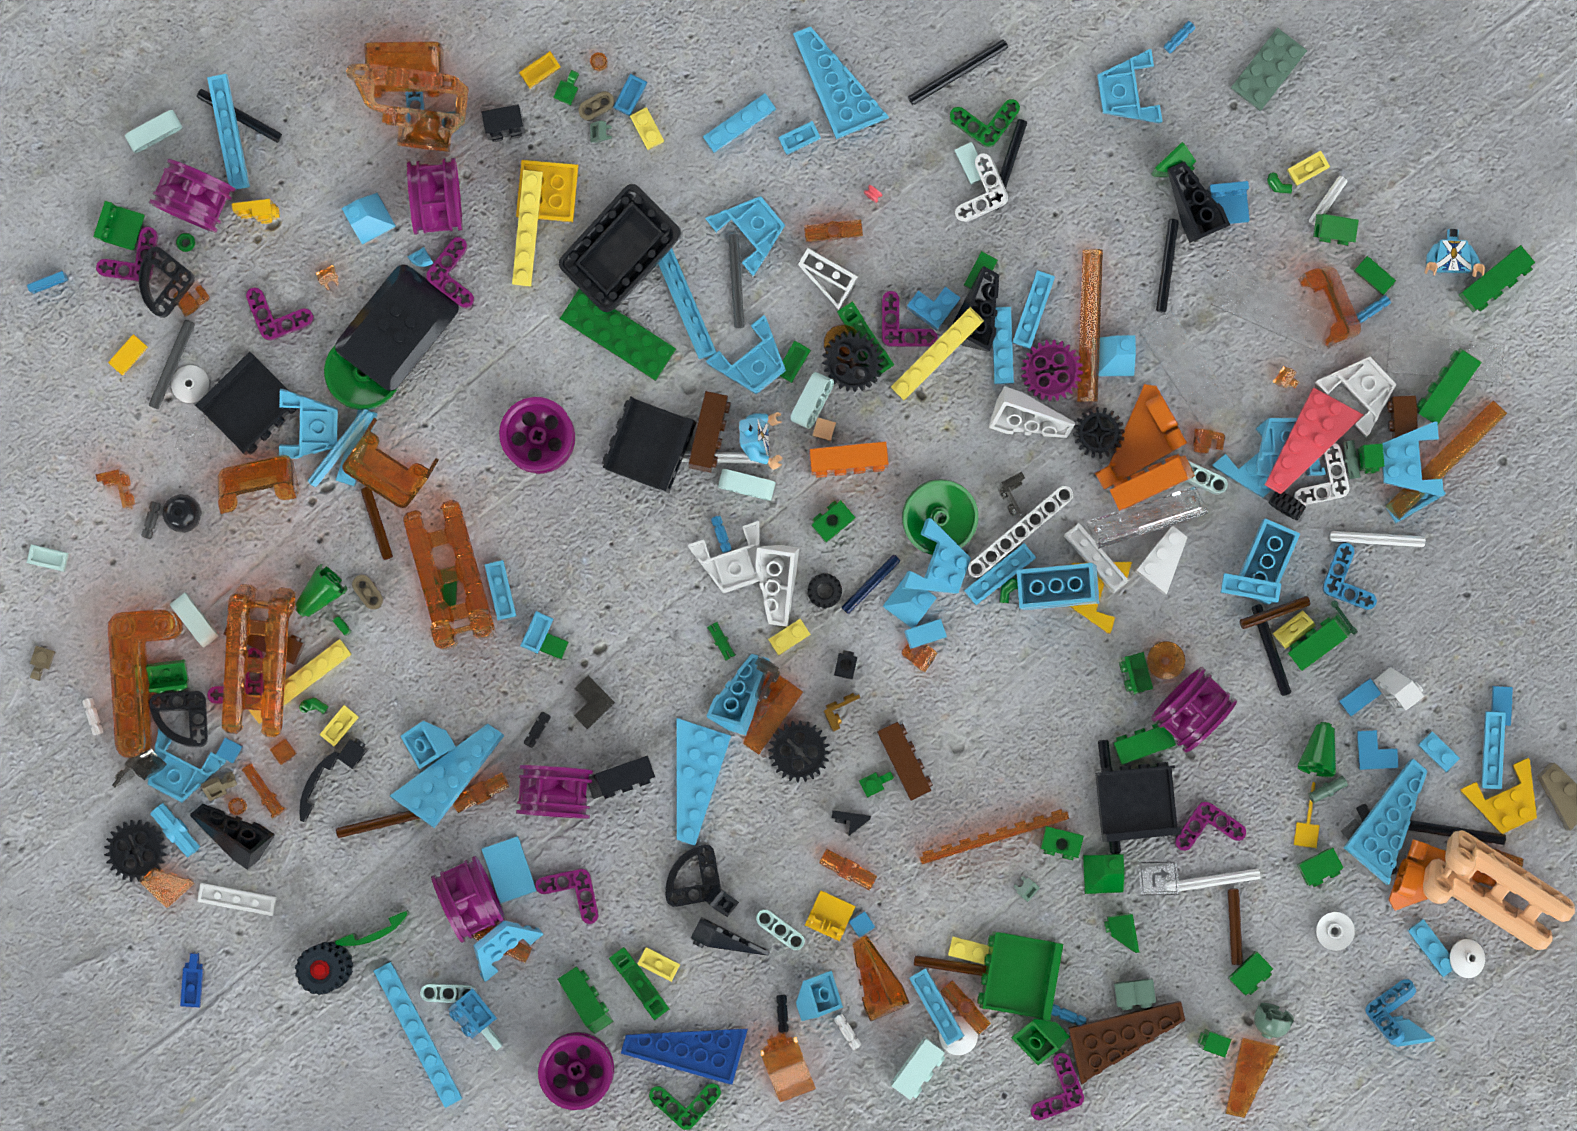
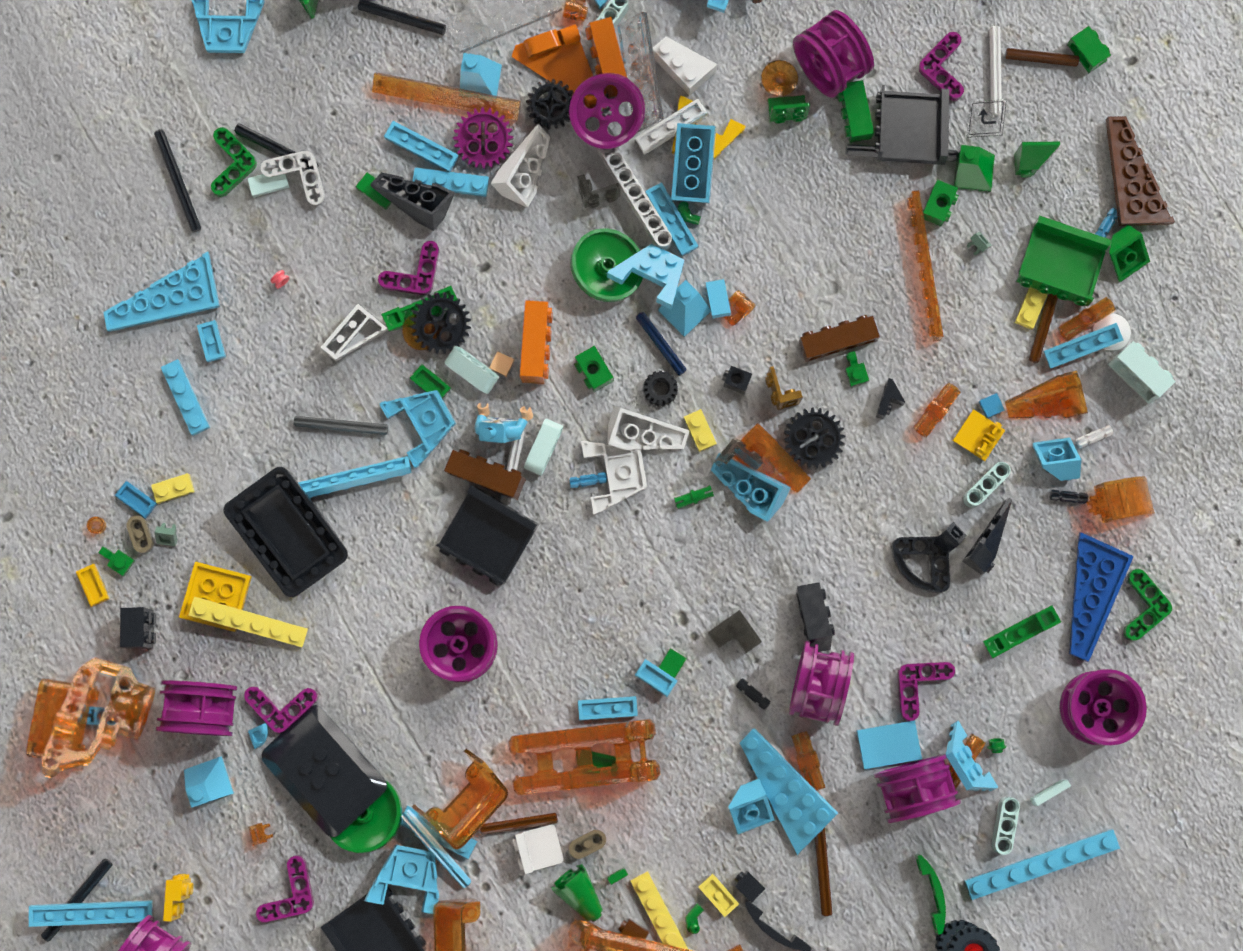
camera: 80 degrees left, 5 degrees down
(355, 545) = (538, 848): none -> white bracket
(471, 1014) = (1031, 804): dark azure bracket -> none
(525, 974) = (996, 745): none -> green plate
(585, 1000) = (1030, 688): green wedge -> none
(619, 335) = (373, 549): green plate -> none
(658, 964) = (1004, 609): light yellow plate -> none
(698, 766) = (815, 540): medium azure wing -> none
(758, 225) = (288, 395): medium azure wing -> none
(820, 232) = (309, 310): clear orange piece -> none
(933, 312) = (406, 239): dark azure brick -> none
(937, 353) = (447, 240): light yellow plate -> none
(1064, 1096) = (1183, 240): magenta beam -> none
(1110, 509) = (580, 112): none -> magenta wheel
(1135, 992) = (1093, 158): sand green brick -> none
(1214, 1043) = (1152, 90): green brick -> none
(1250, 1069) = (1184, 67): clear orange wing -> none
(1272, 1021) = (1138, 35): sand green cylinder -> none

